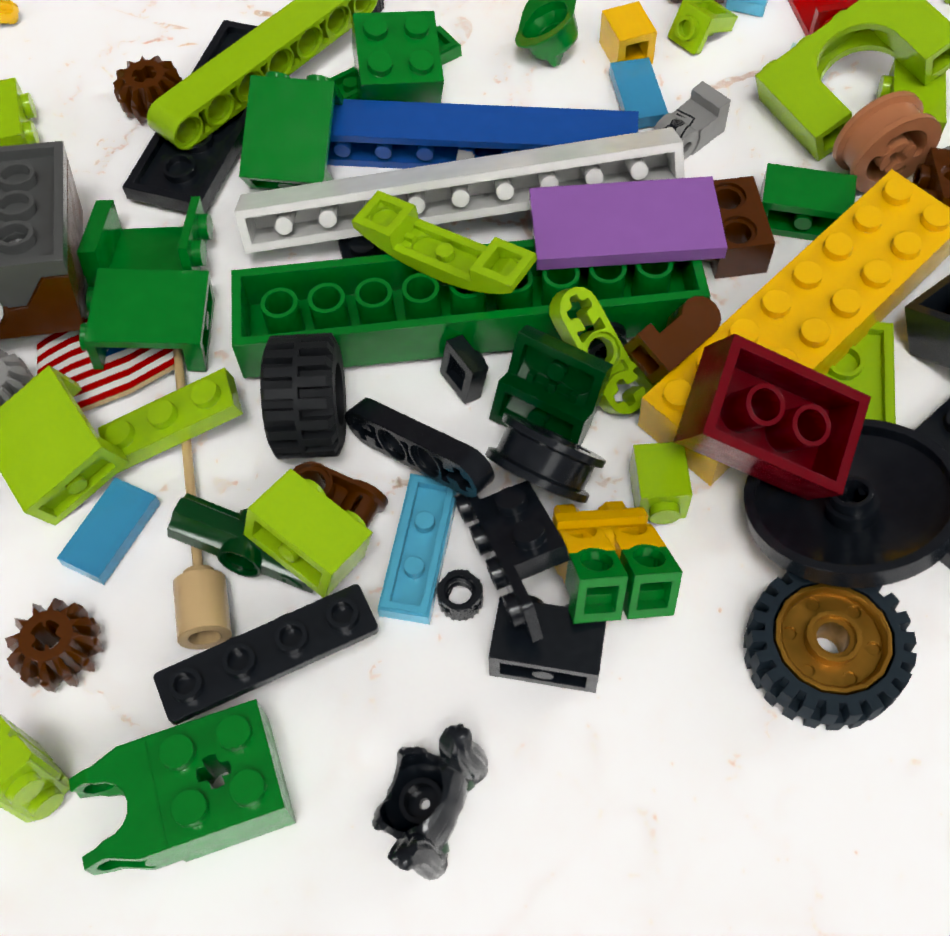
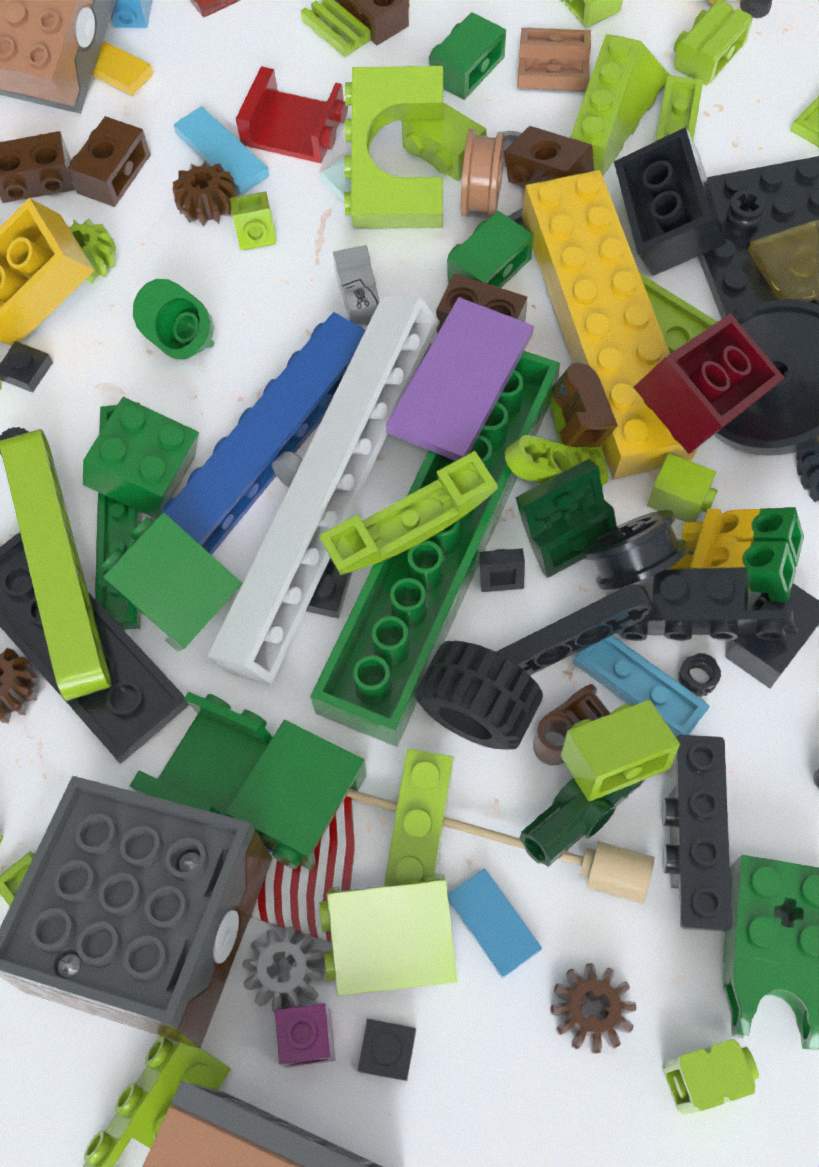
camera: 60 degrees left, 5 degrees up
(627, 33) = (230, 276): yellow brick -> none
(638, 90) = (291, 303): dark azure tile -> none

